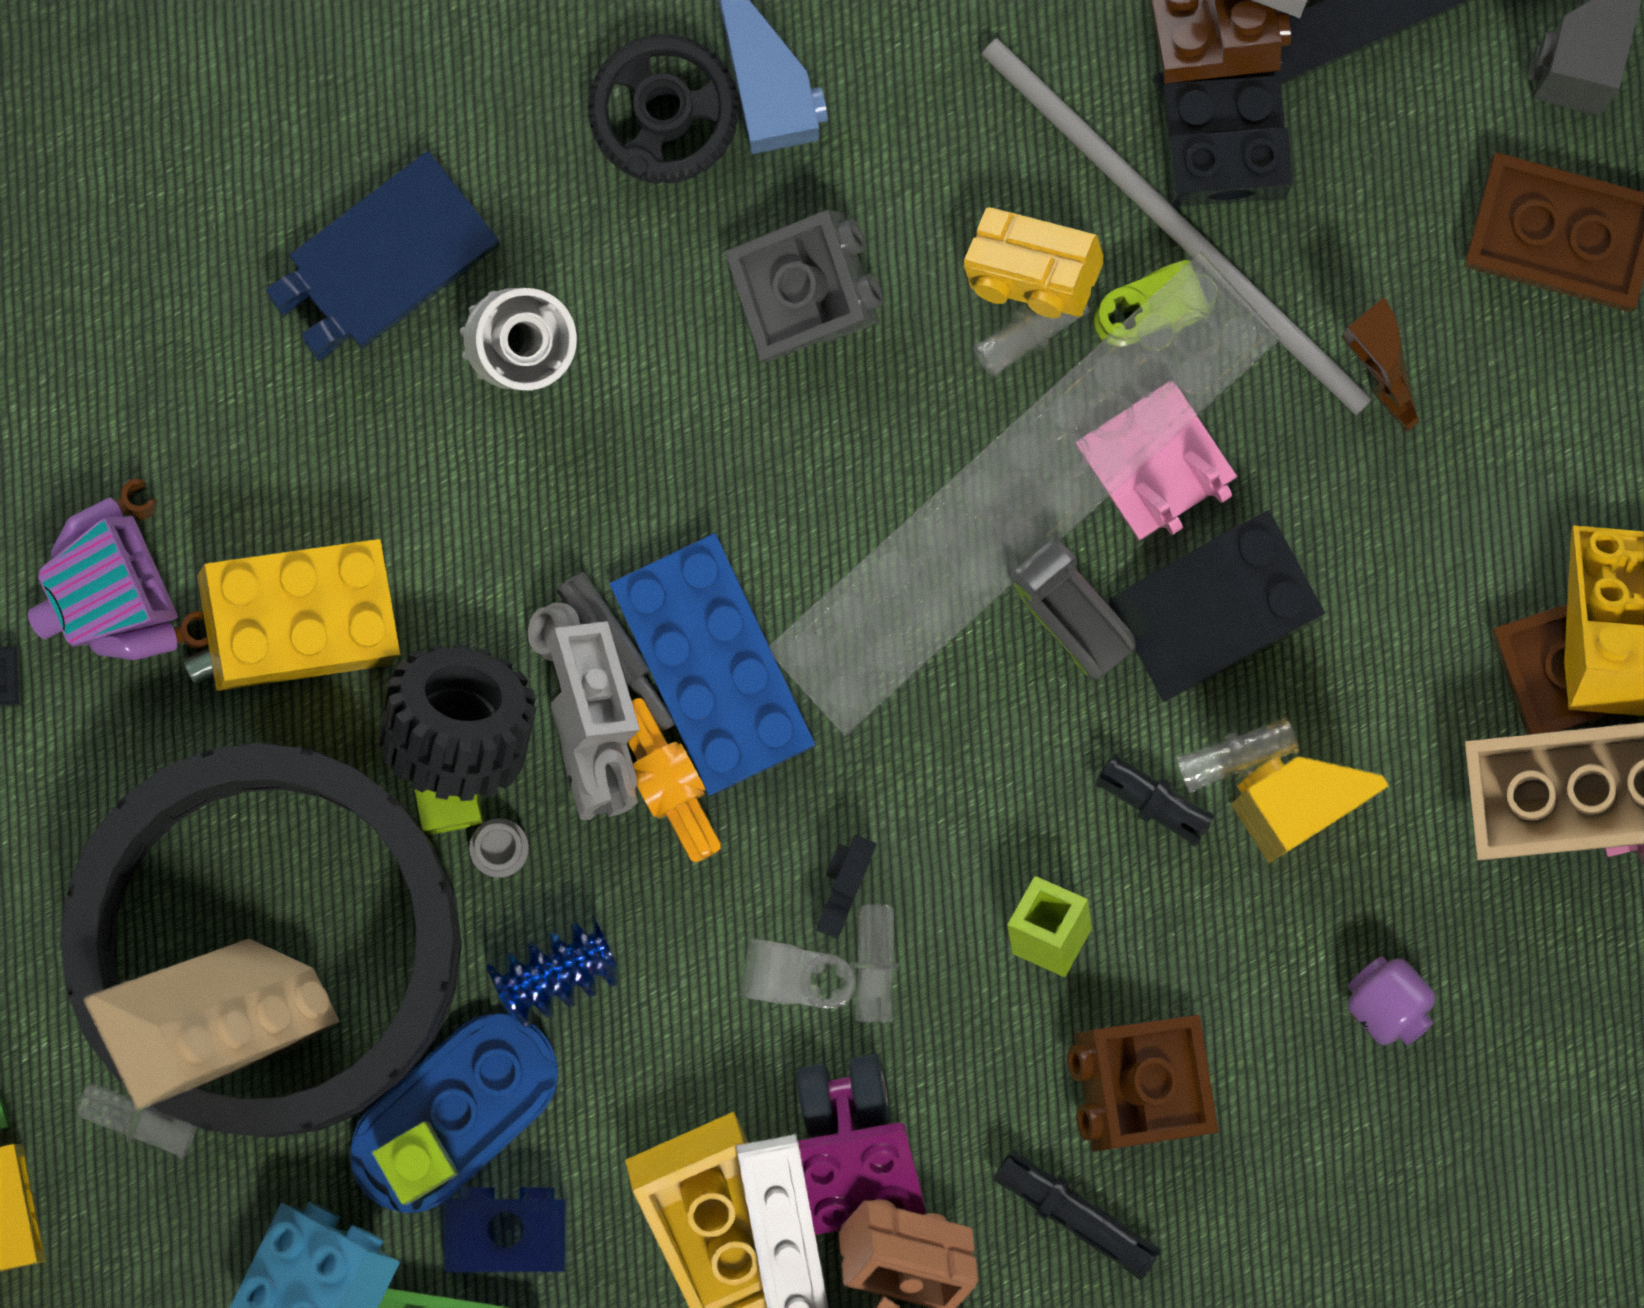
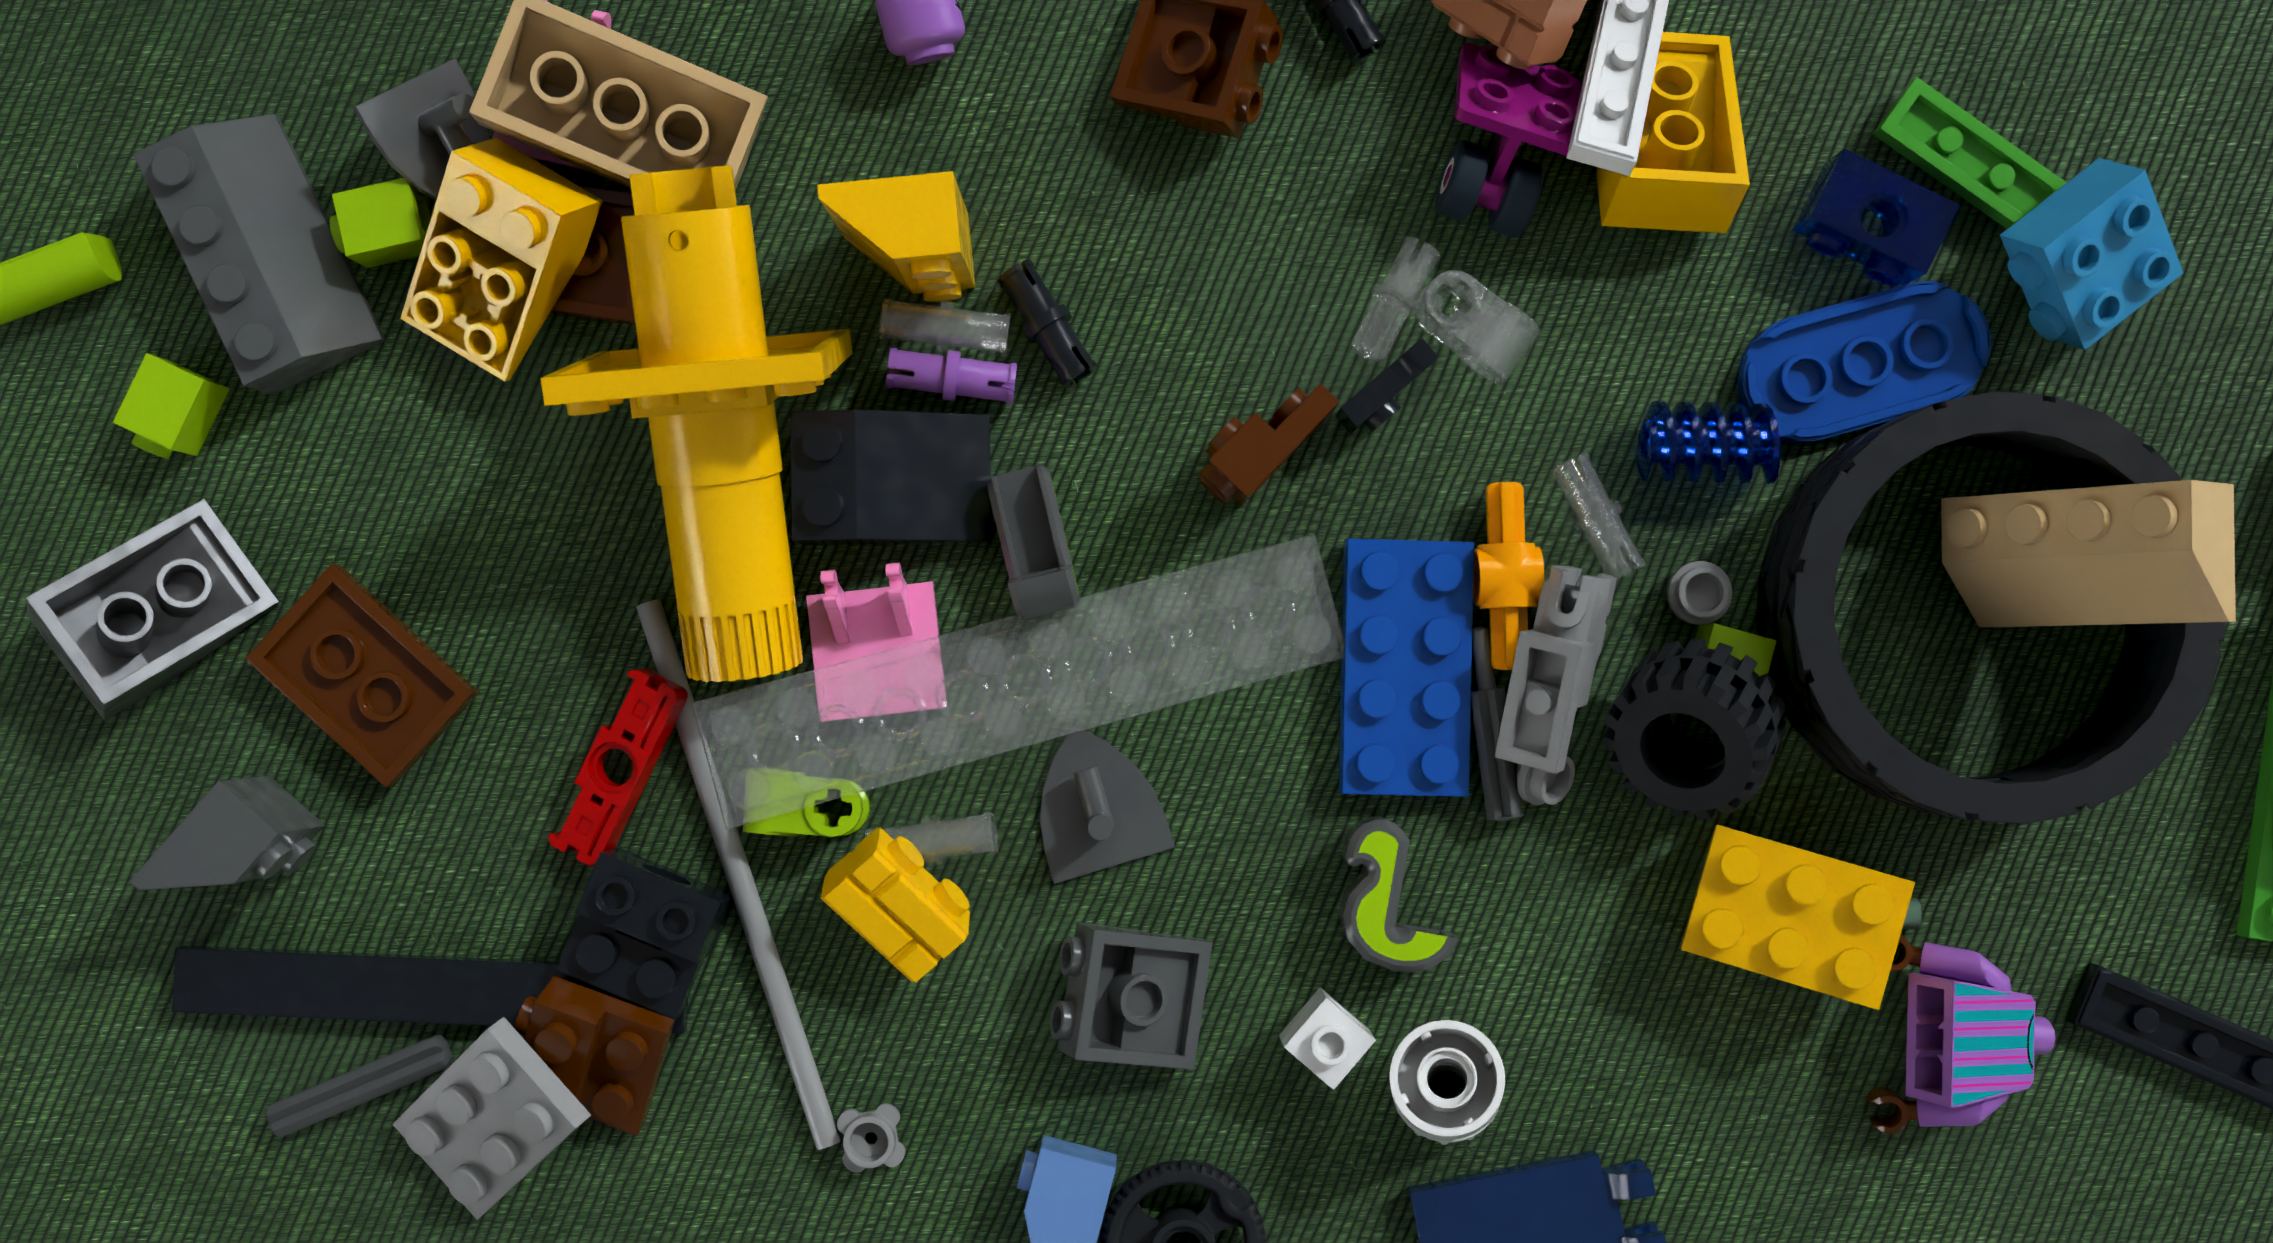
camera: 150 degrees left, 5 degrees up
(415, 1163) = (1938, 321): lime brick -> none
(615, 867) = (1597, 516): none -> clear pin
(629, 329) = (1326, 1038): none -> white brick
(647, 453) = (1373, 898): none -> animal
(907, 423) = (1098, 810): none -> dark grey shield
(929, 770) = (1252, 451): none -> reddish brown plate
(961, 52) = (860, 1153): none -> light grey plate
(1049, 926) = (1212, 247): lime brick -> none
(1211, 716) = (951, 375): none -> medium lavender pin
(1314, 298) = (640, 732): none -> red piece
(1379, 346) = (598, 647): reddish brown slope -> none
(1398, 596) = (709, 401): none -> yellow piece

